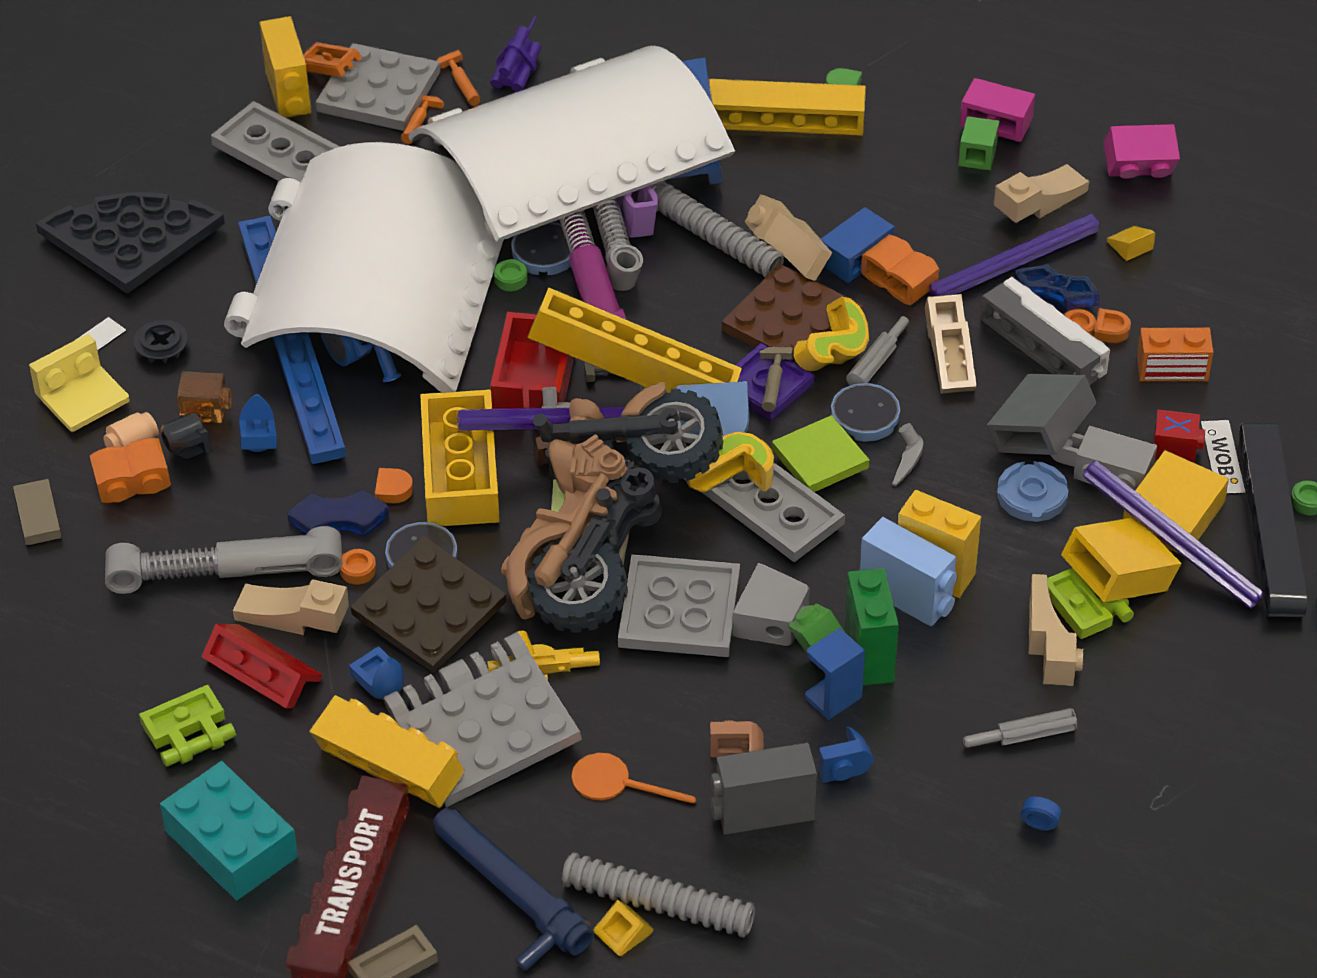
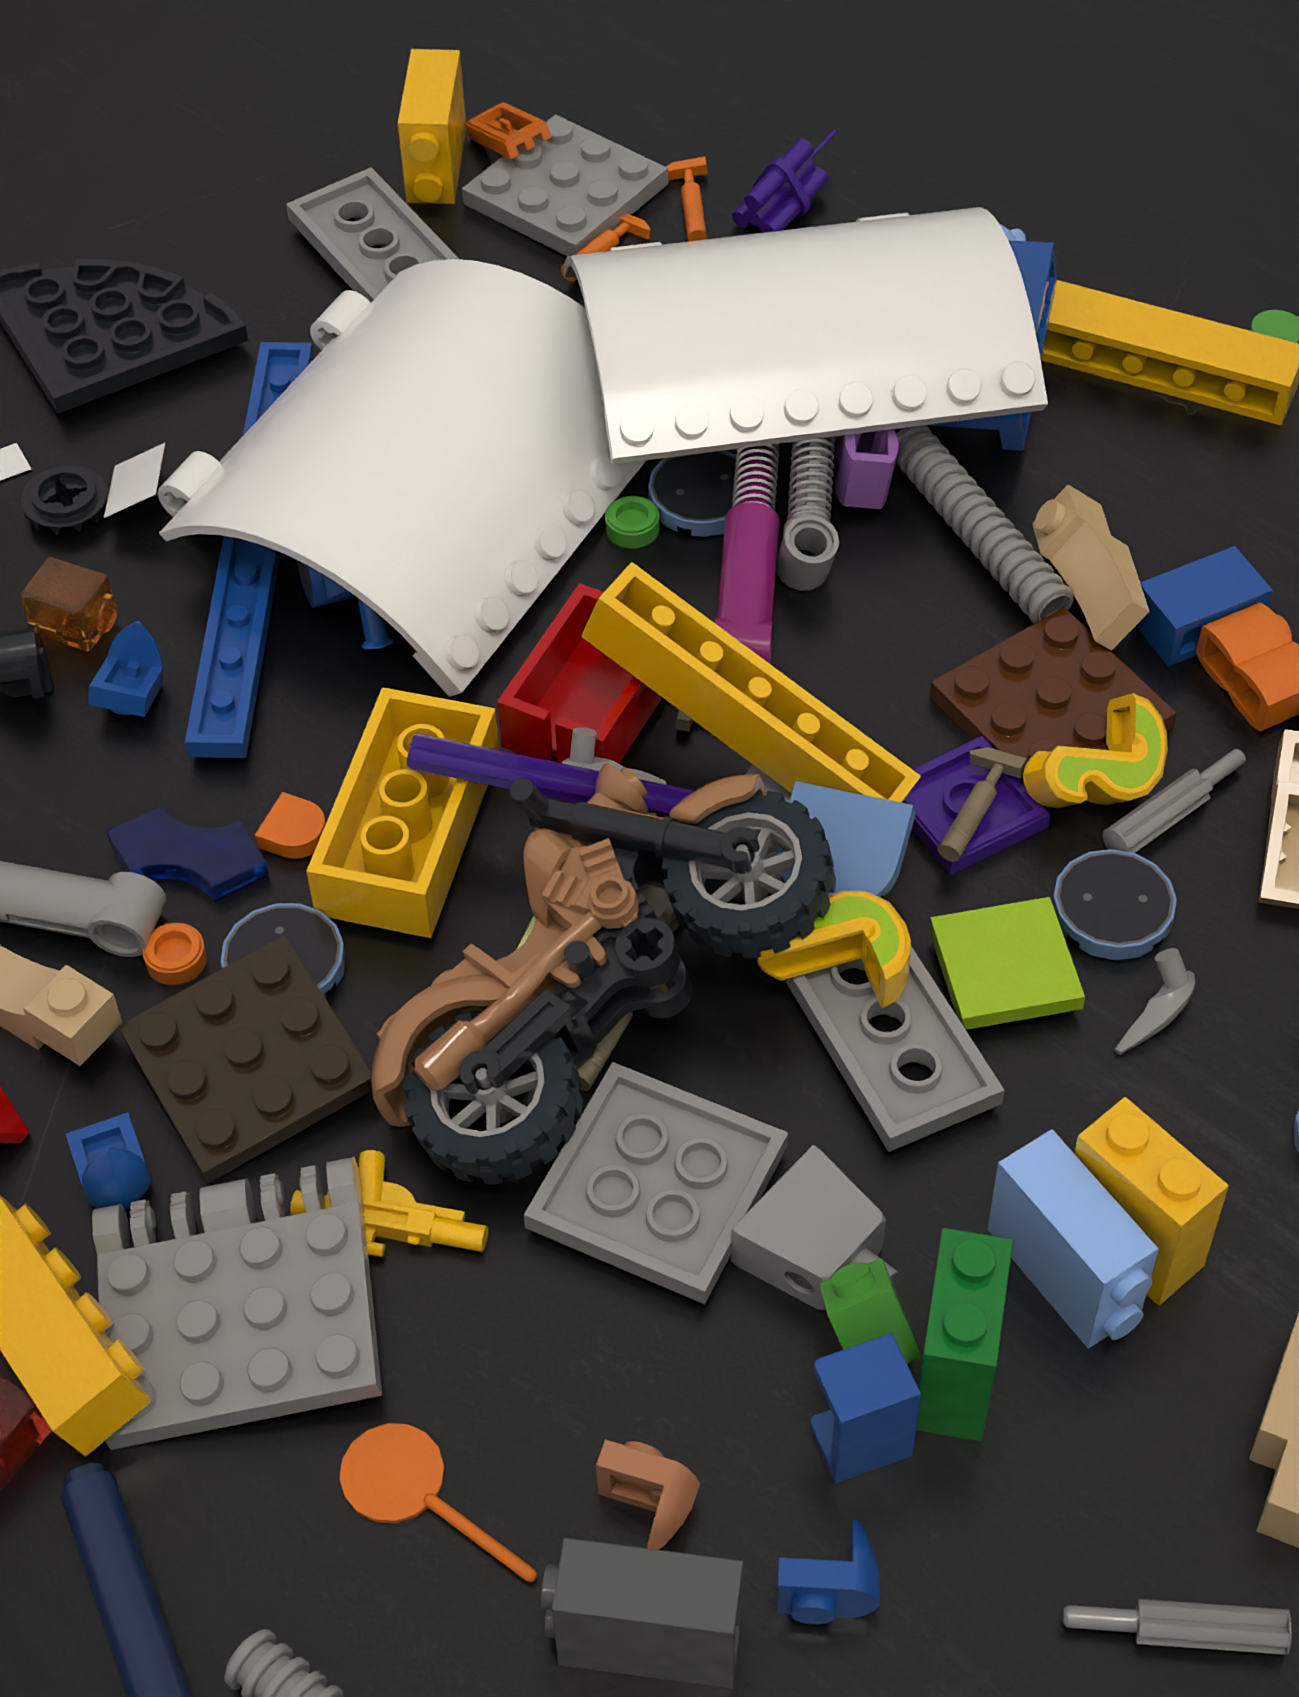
camera: 20 degrees right, 5 degrees up
(201, 319) = (134, 480): none -> white sticker

